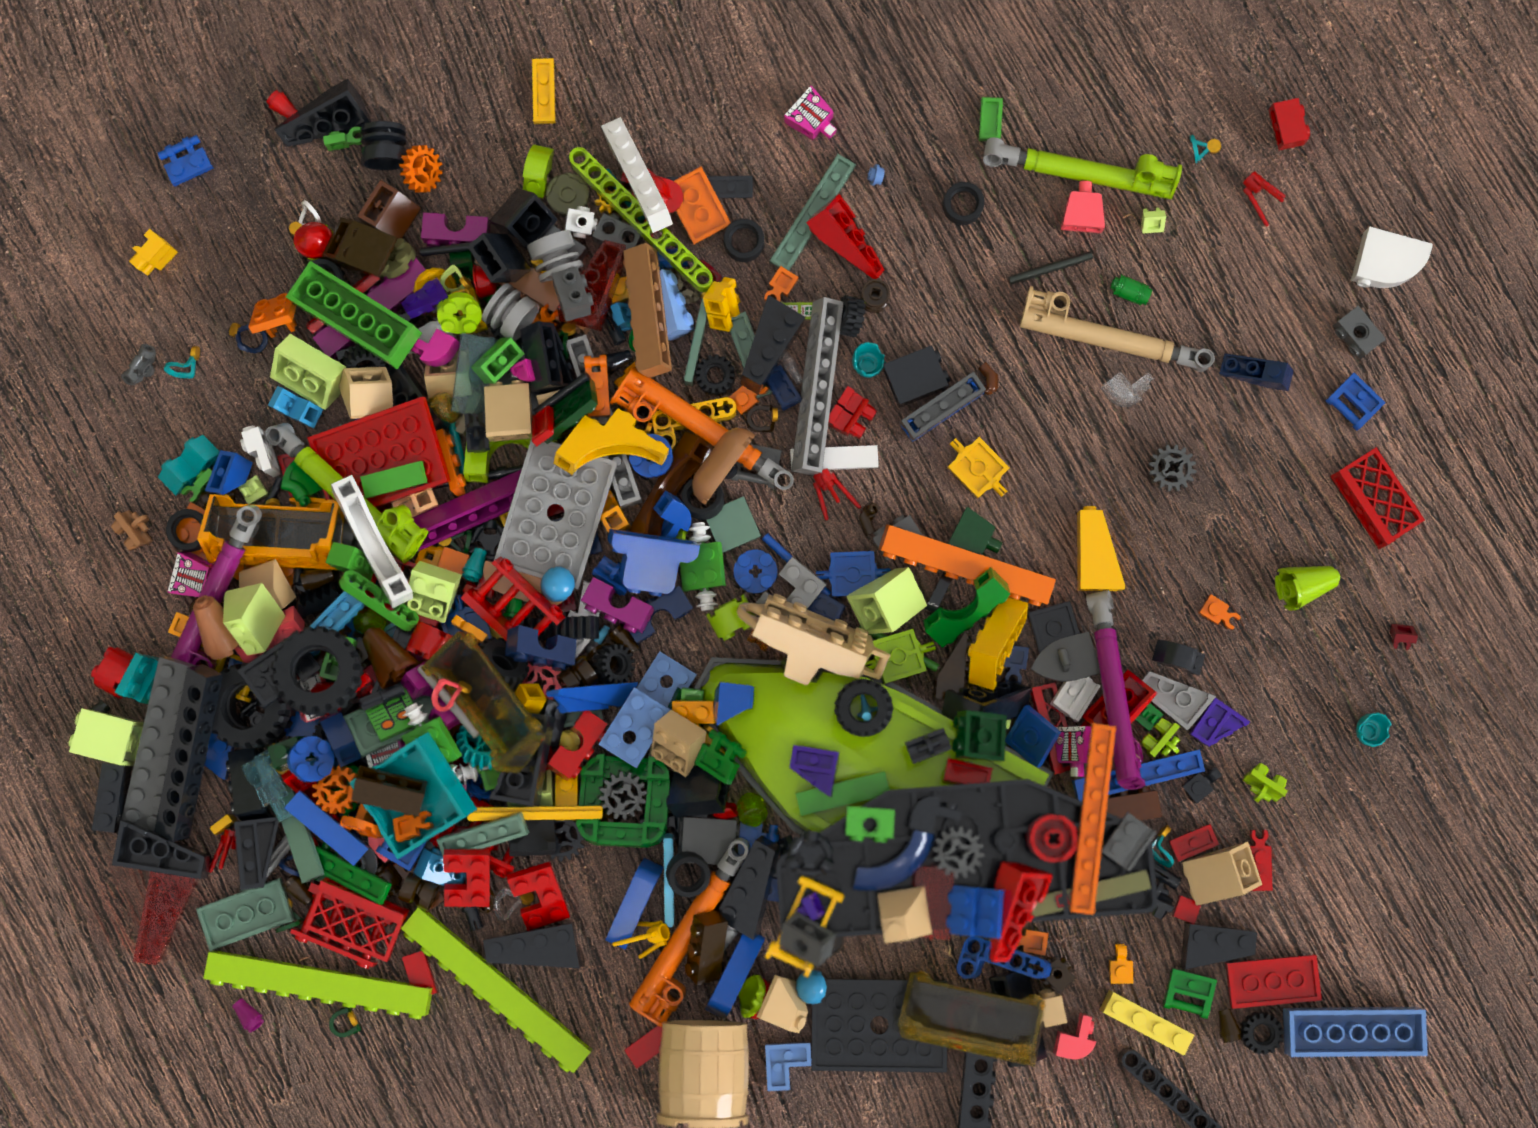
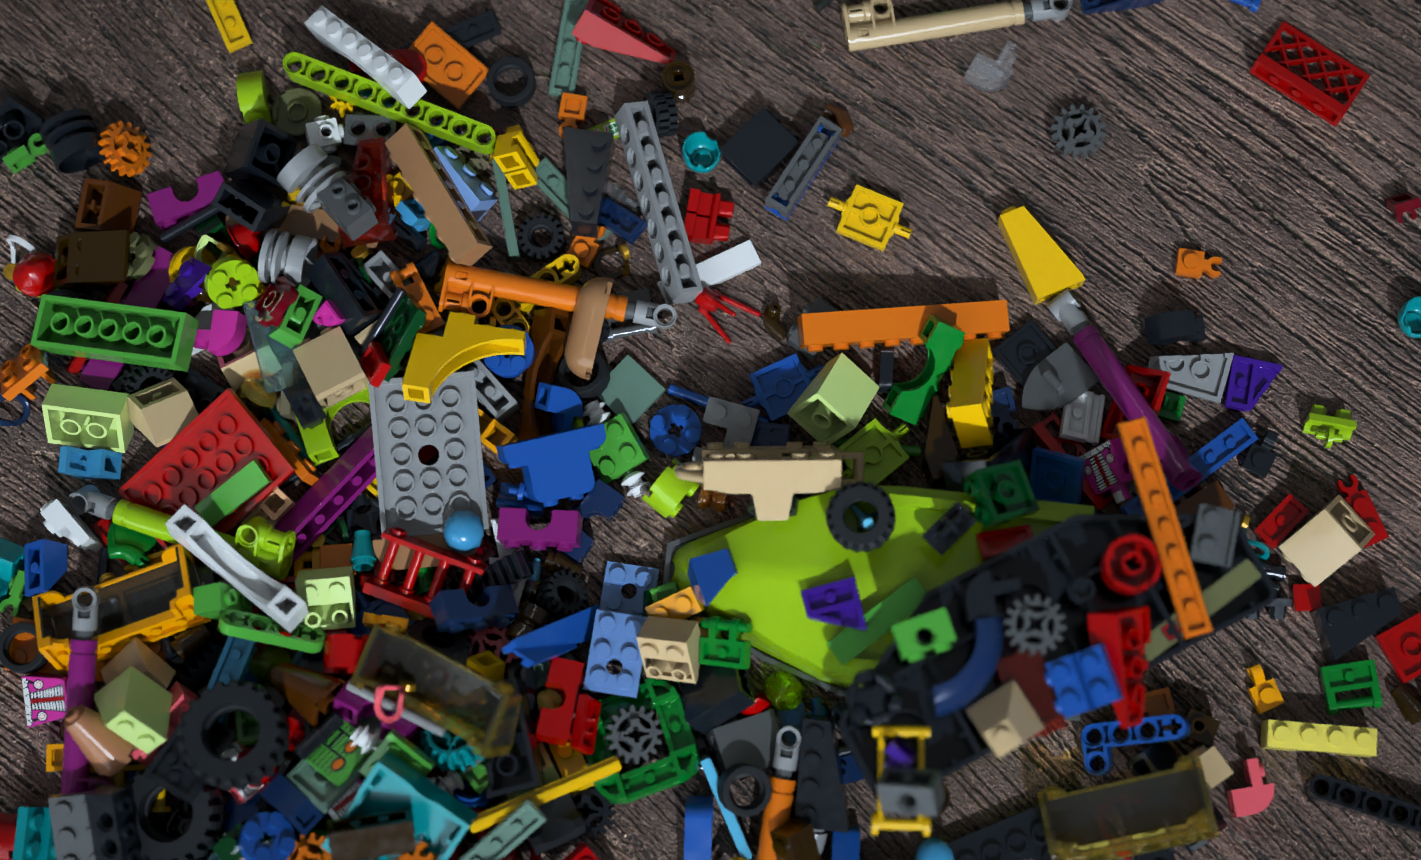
camera: 20 degrees left, 5 degrees down
(253, 490) = (79, 574): yellowish green tile -> none
(485, 344) = (275, 302): none -> dark red plate
(588, 772) = (585, 724): none -> red plate
(974, 534) = (897, 287): dark green torso -> none
(1167, 731) = (1198, 412): lime hips -> none
(1304, 584) = (1273, 195): lime cone -> none

